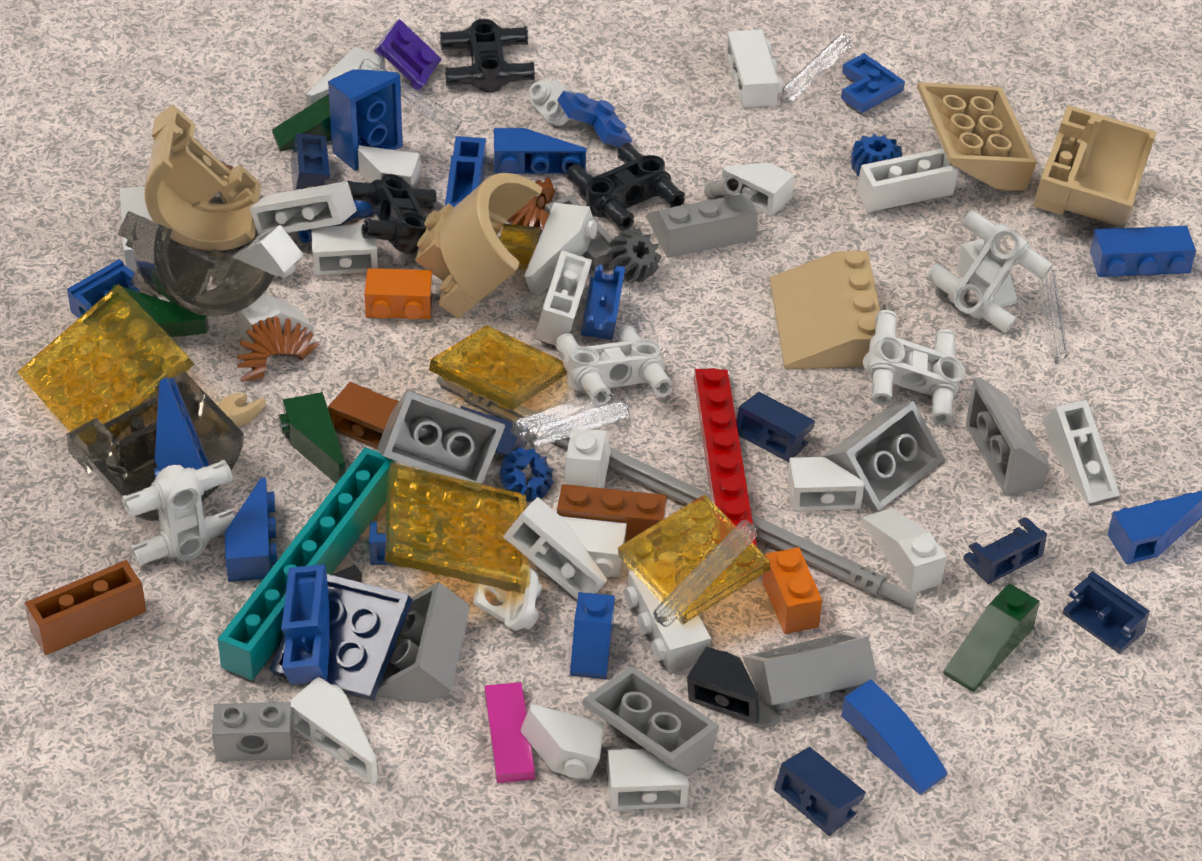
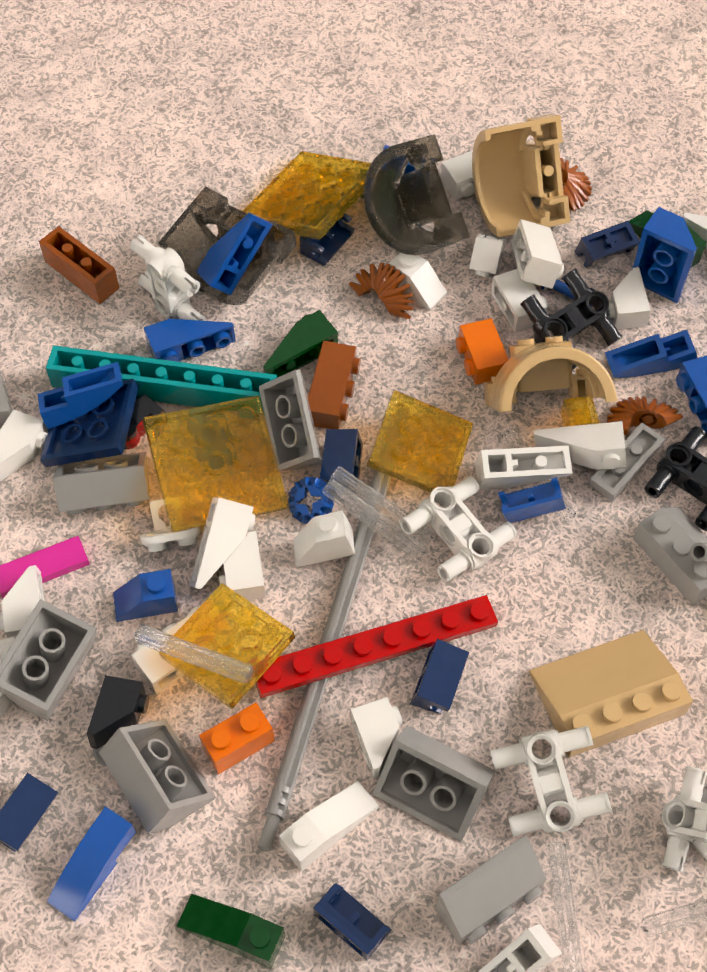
camera: 75 degrees right, 15 degrees up
(240, 415) = (309, 288): tan hand -> none
(634, 253) = (606, 497): dark grey gear -> none
(634, 508) = (280, 574): dark orange brick -> none

